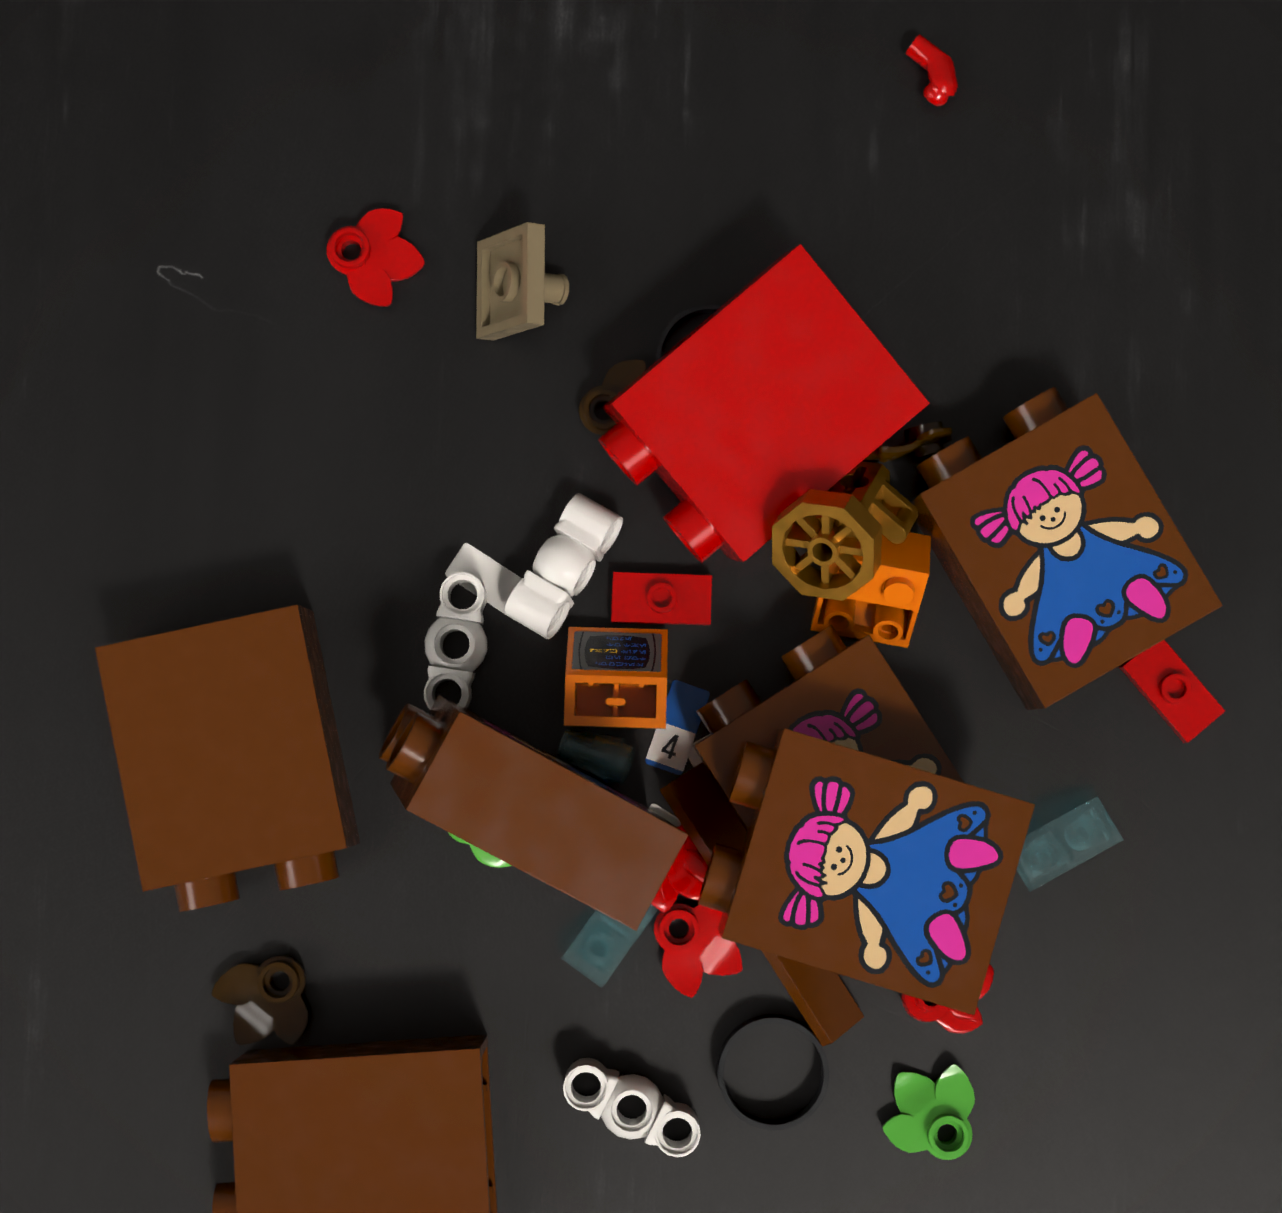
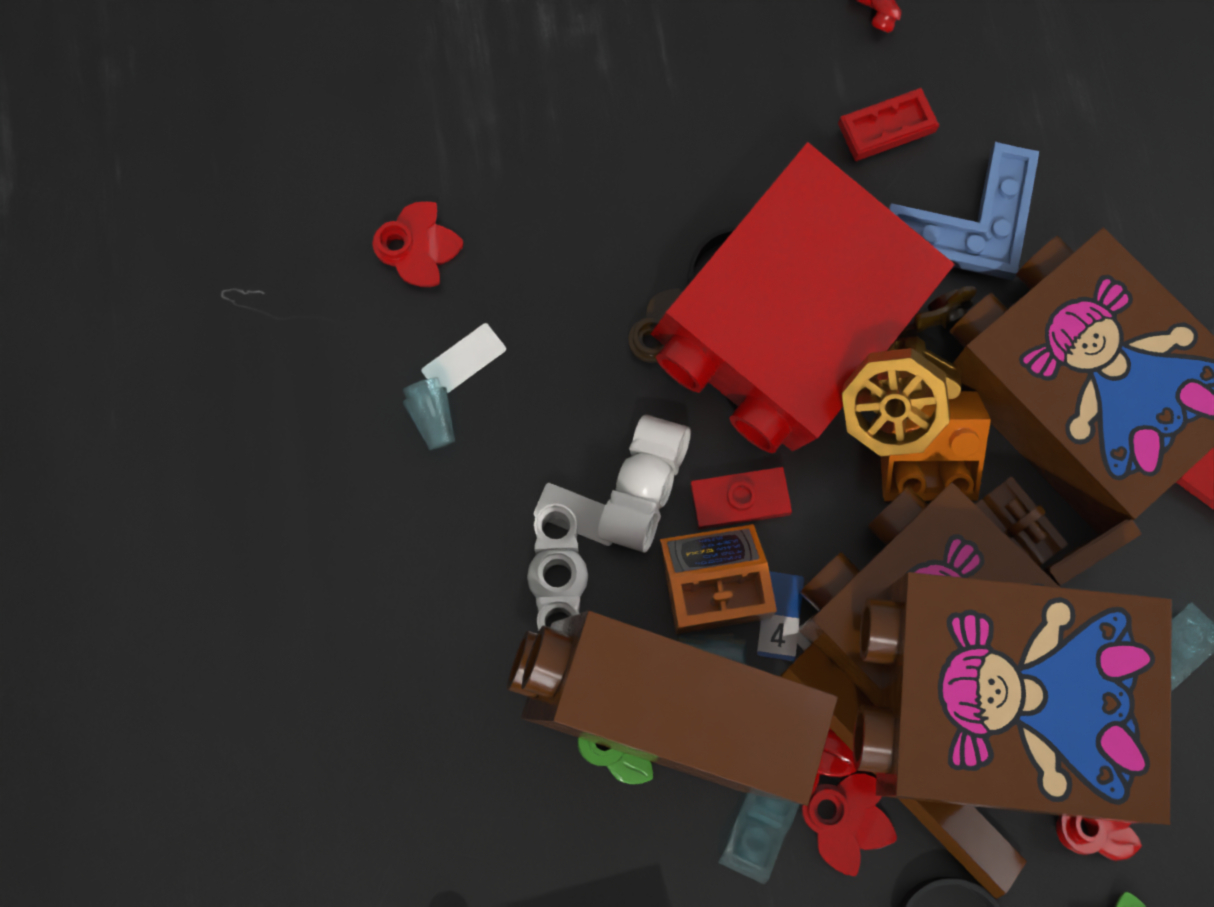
camera: 10 degrees left, 10 degrees down
(229, 754) = (357, 721): reddish brown brick -> none
(356, 446) = (430, 411): none -> clear light blue cone
(402, 392) = (465, 358): none -> white sticker
(514, 282) = (548, 238): dark tan tile -> none
(912, 216) = (888, 124): none -> red plate
(939, 685) = (1022, 521): none -> reddish brown hips
(988, 375) = (996, 239): none -> medium blue plate
(992, 732) = (1092, 552): none -> reddish brown tile

